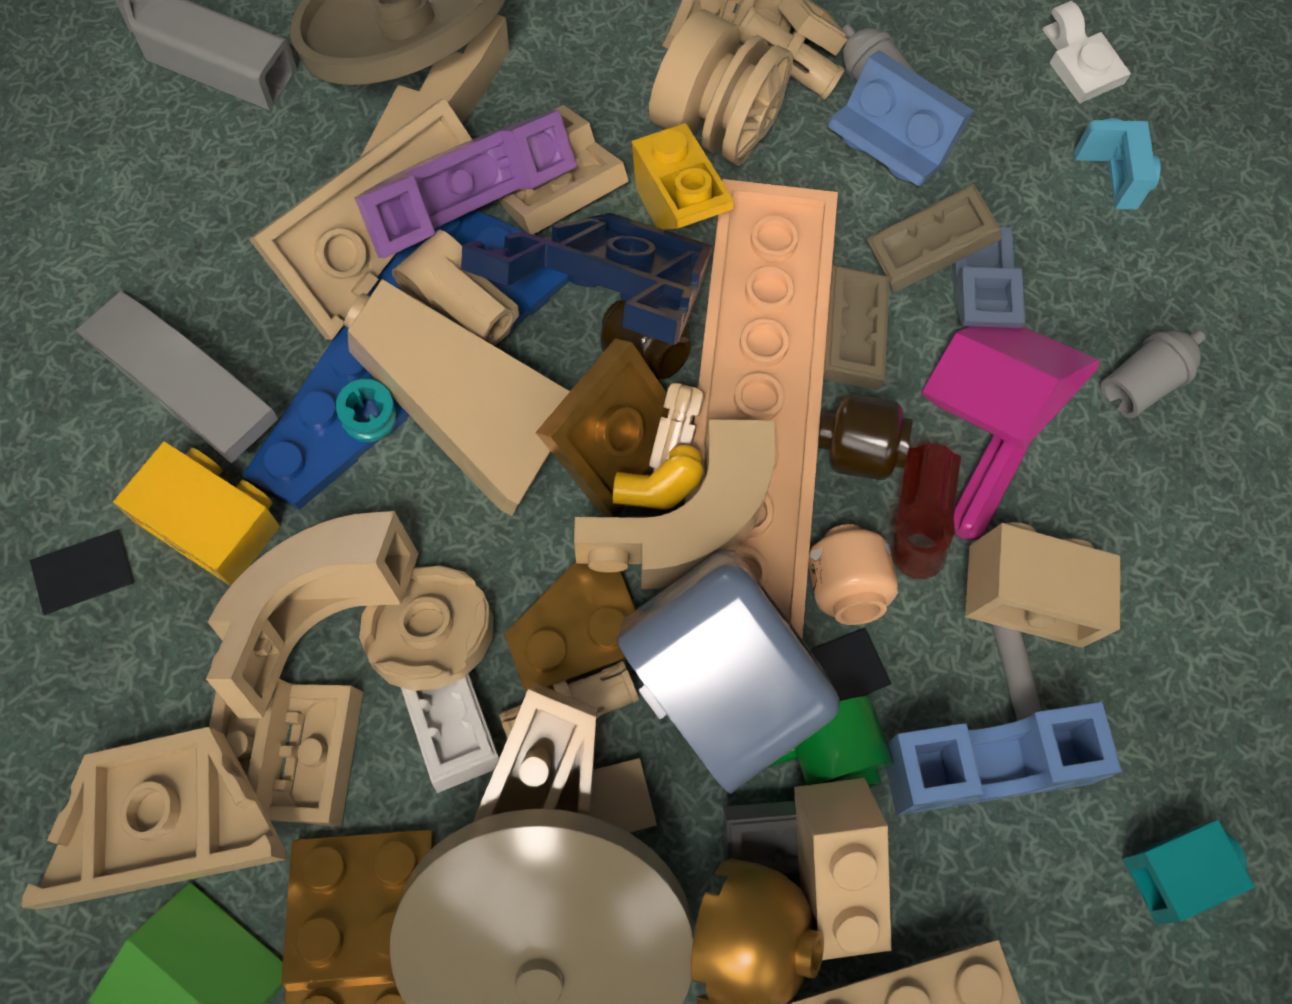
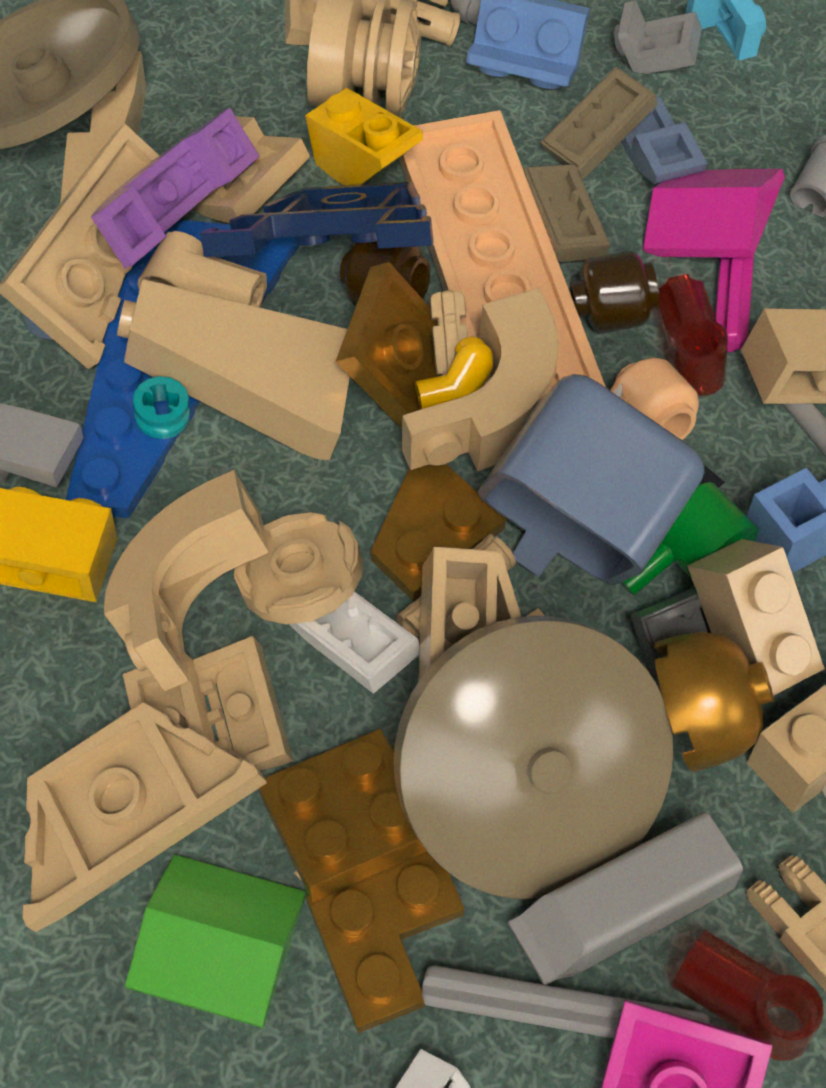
camera: 20 degrees left, 10 degrees down
(1036, 165) = (657, 43): none -> light grey bracket

